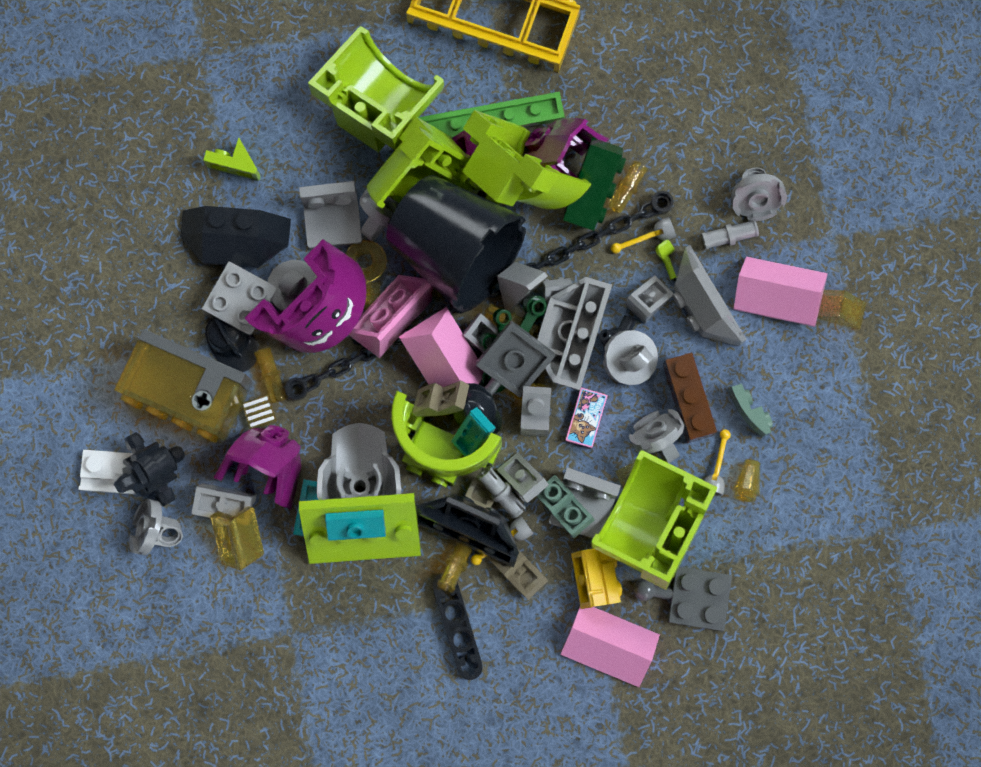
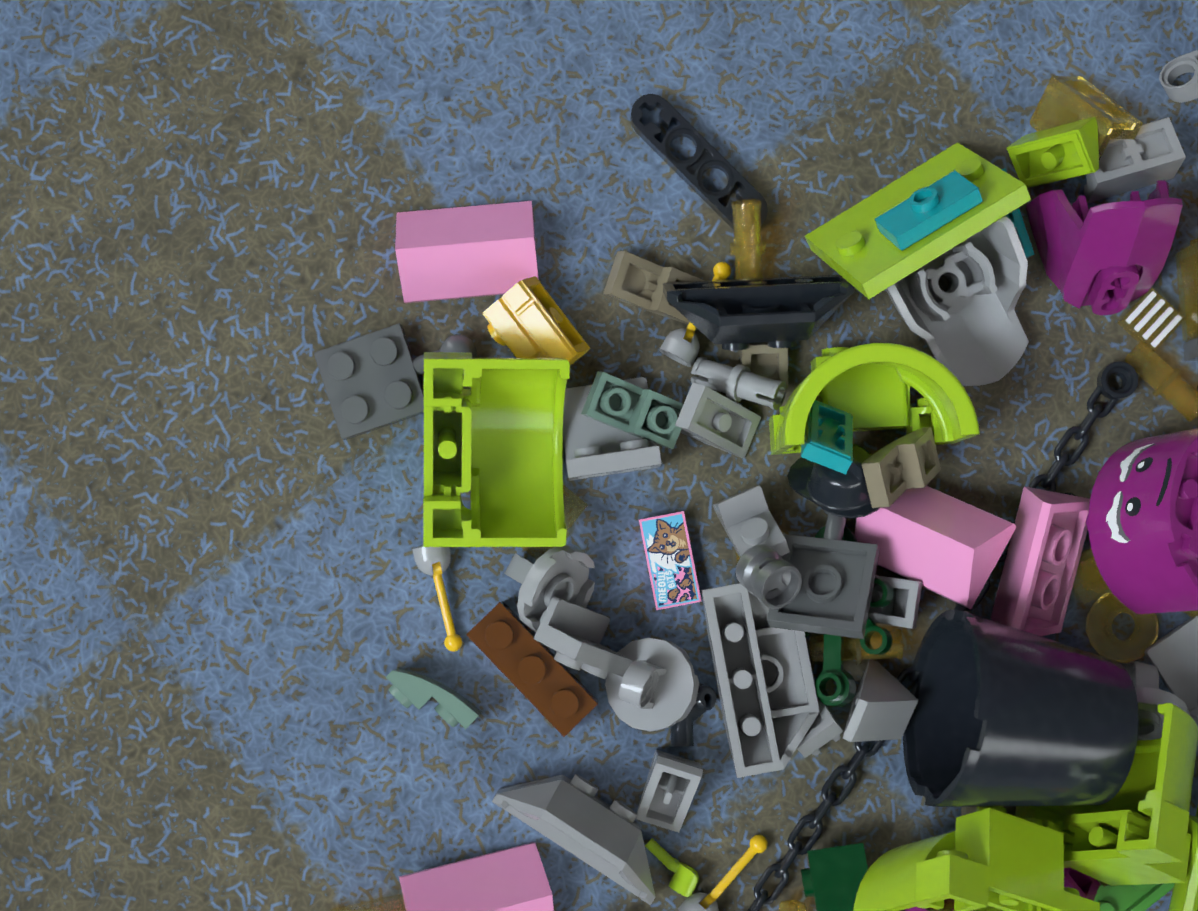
camera: 150 degrees right, 5 degrees up
(262, 527) = (1056, 153): none -> lime slope
(543, 377) = (768, 576): none -> flat silver wheel
(660, 399) = (577, 638): none -> light grey bracket
(748, 482) = (384, 587): clear yellow cone -> none

